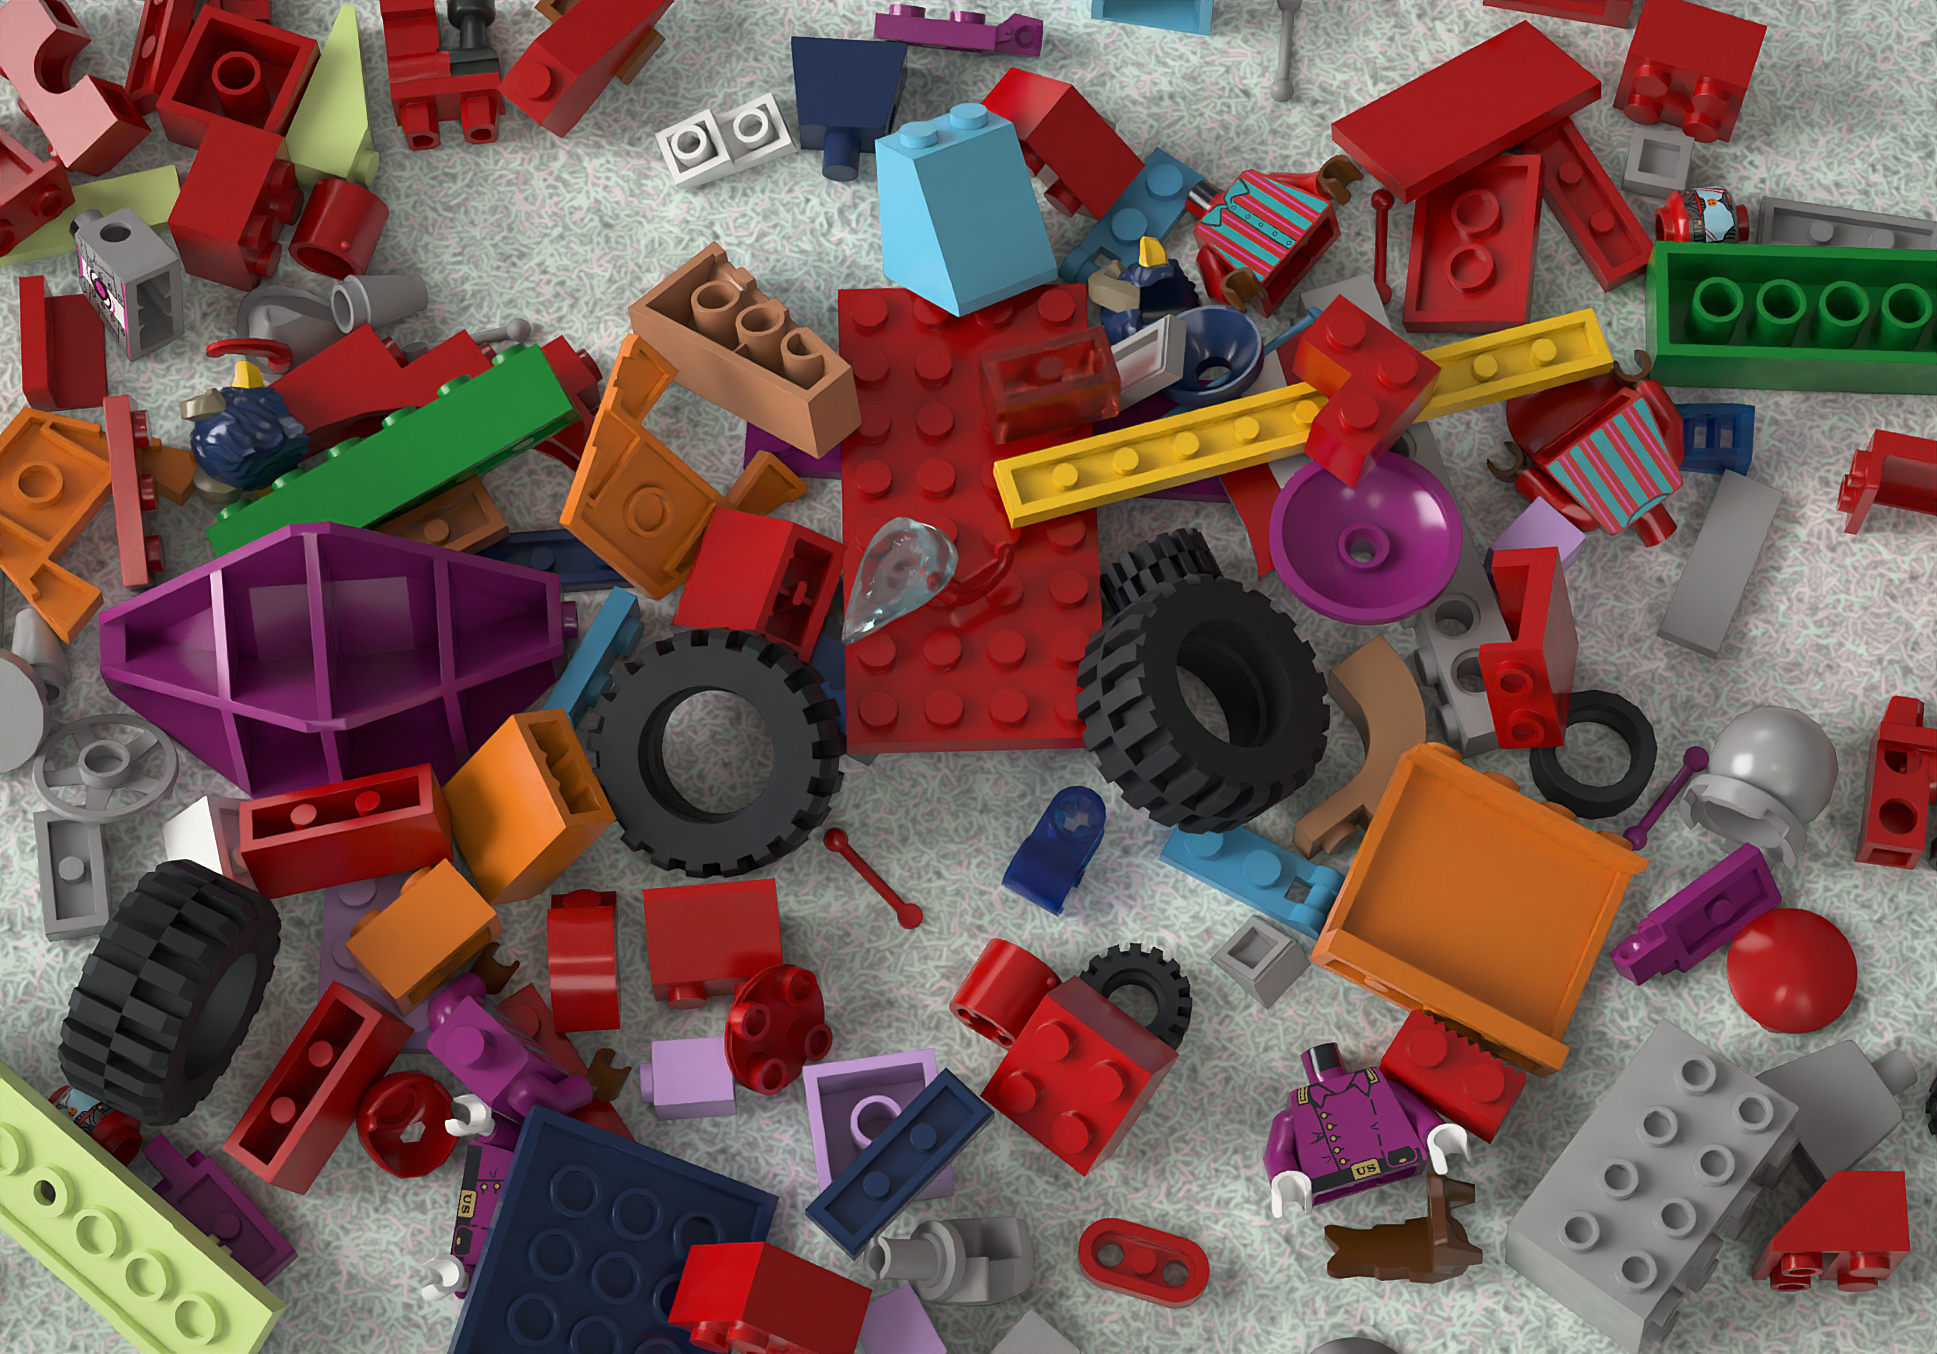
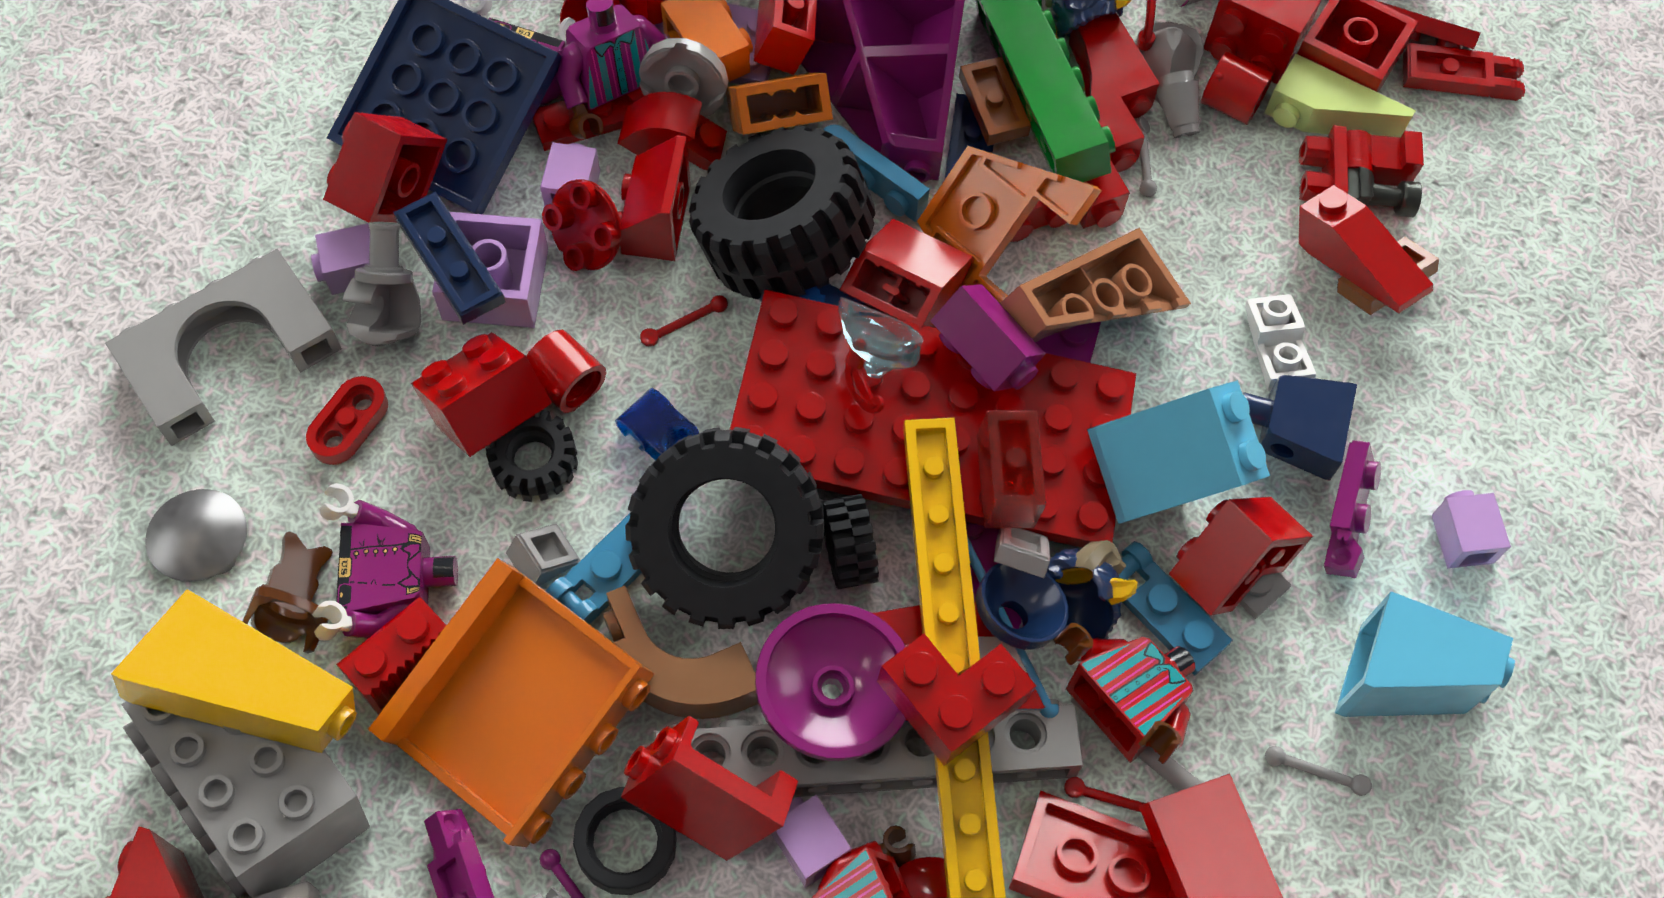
camera: 100 degrees right, 5 degrees down
(513, 940) = (686, 69): none -> light grey tile
(871, 443) = (988, 339): none -> magenta brick
(1578, 1192) = (232, 676): none -> yellow slope

